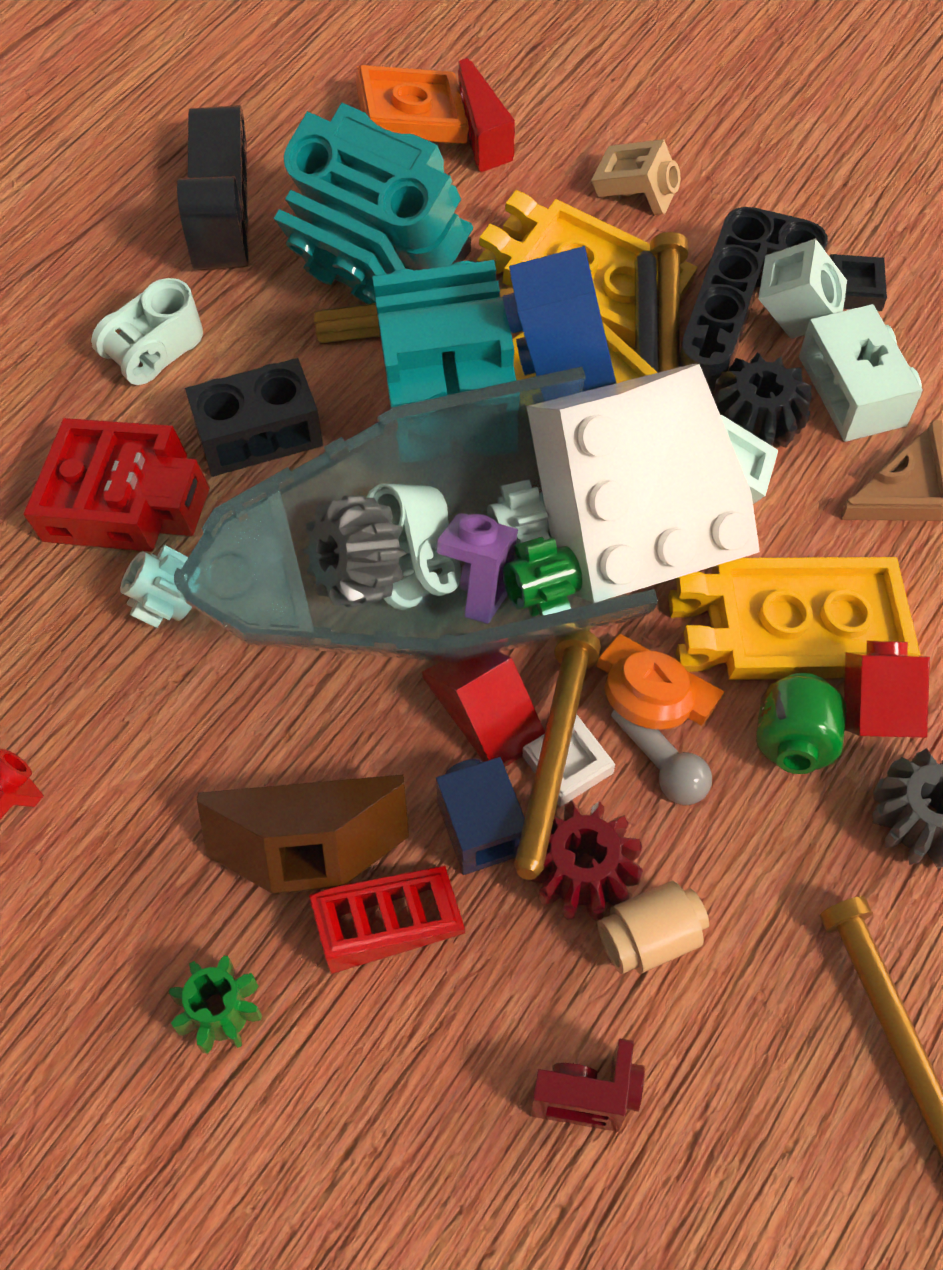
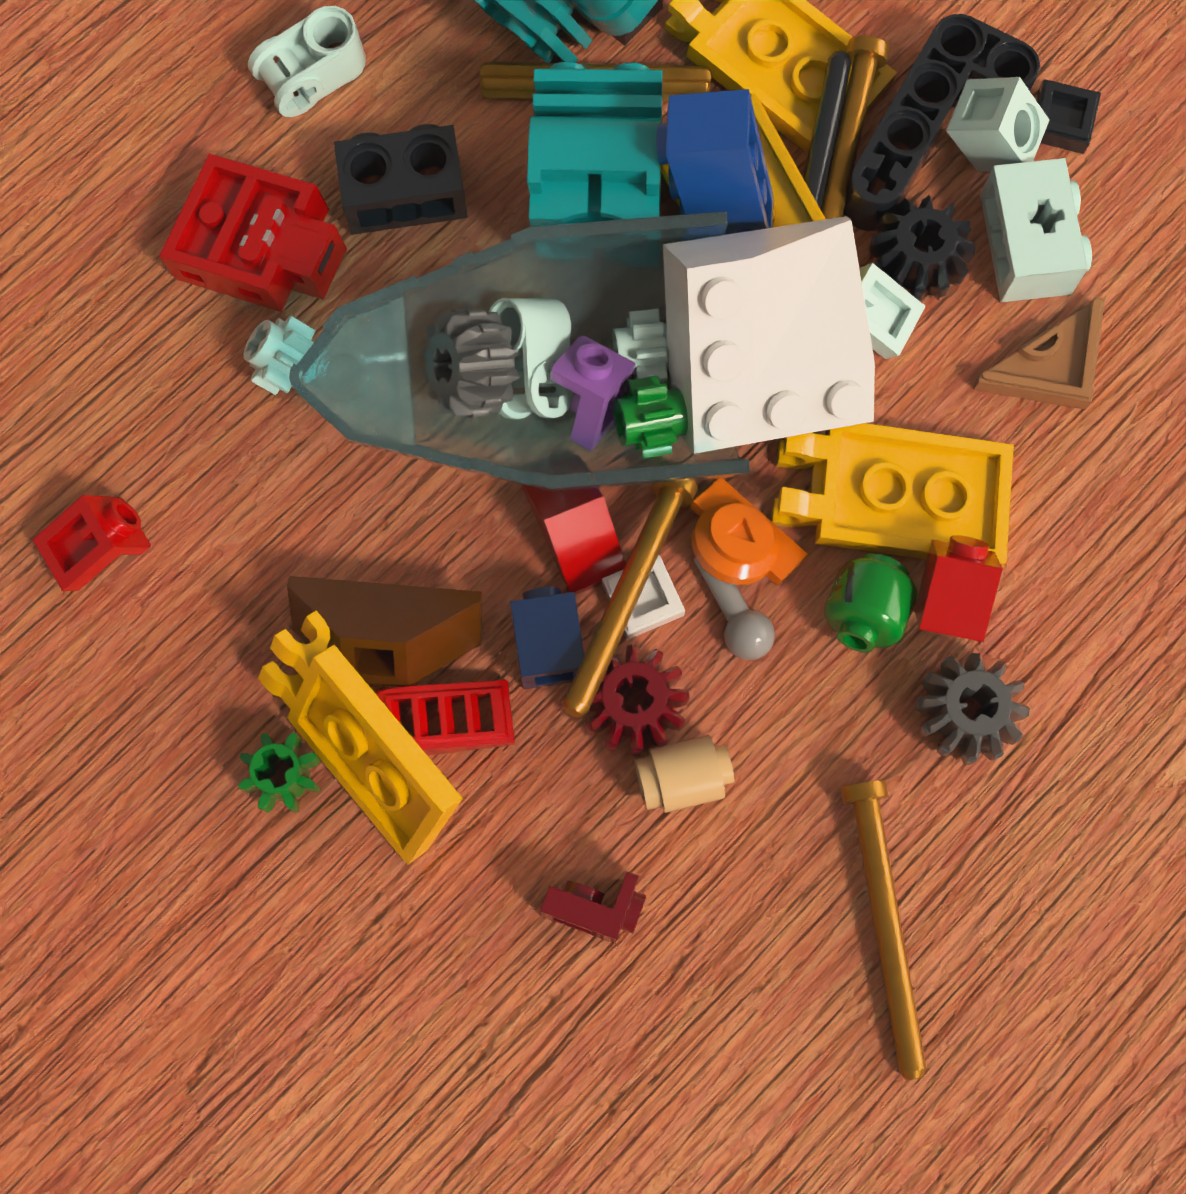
camera: 10 degrees right, 15 degrees up
(303, 950) = (360, 740): none -> yellow tile

